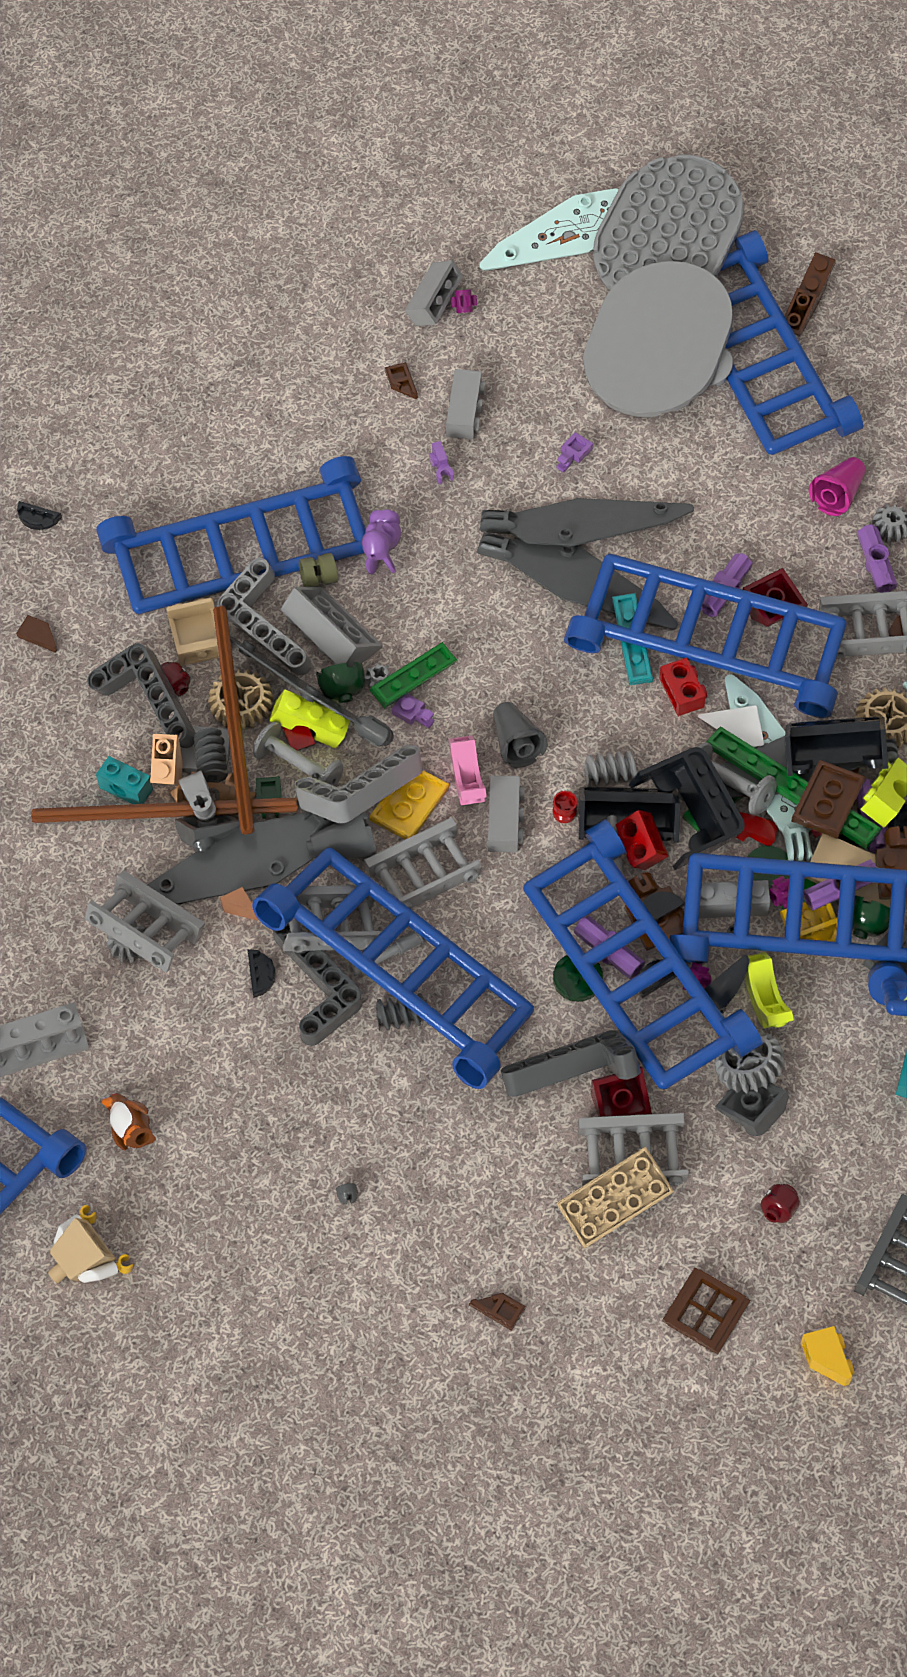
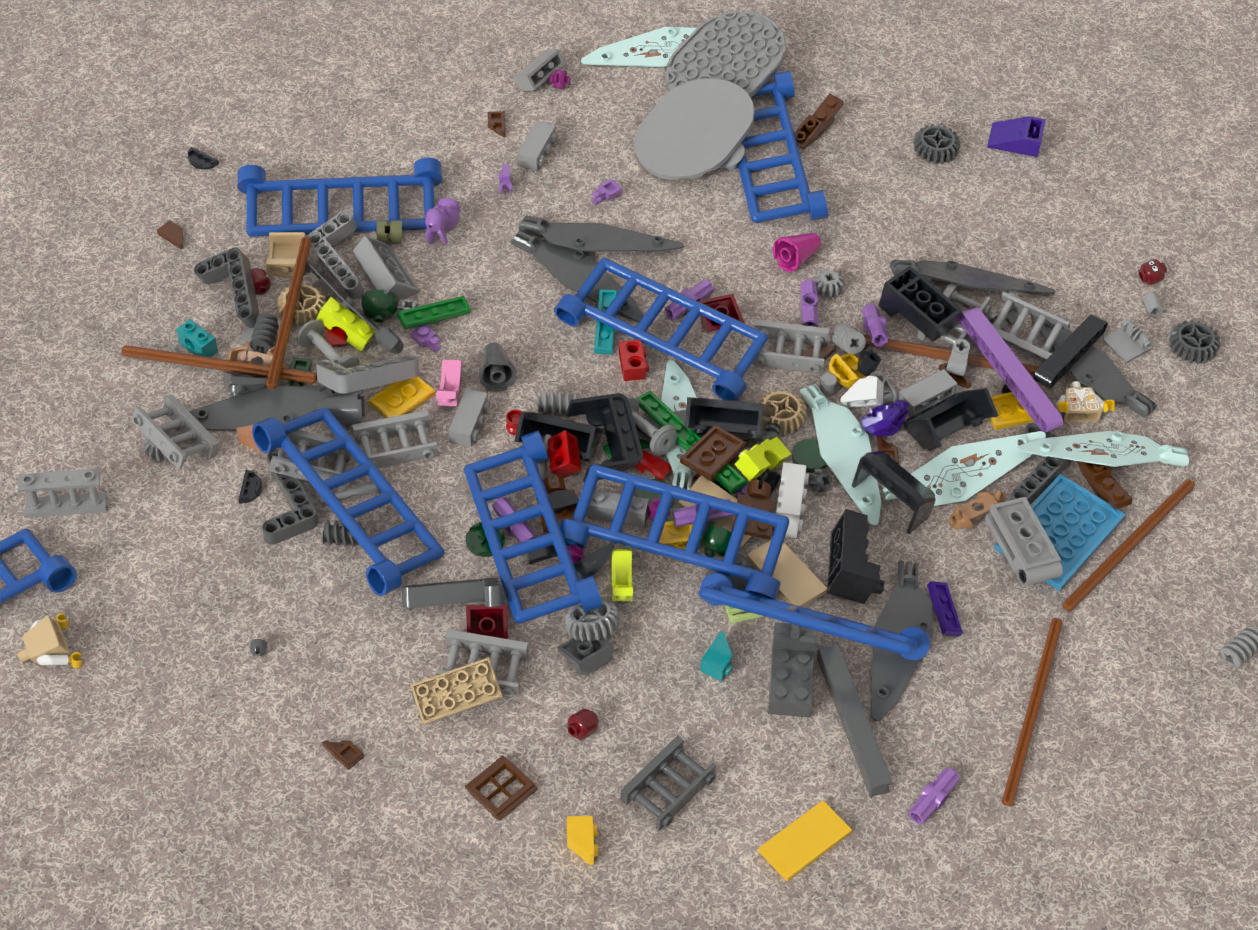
camera: 10 degrees right, 10 degrees down
(128, 1122) = (114, 564): dark orange animal -> none
(166, 760) = (231, 330): light nougat slope -> none
(197, 793) = (244, 356): light grey piece -> none
(741, 722) = (668, 393): white sticker -> none

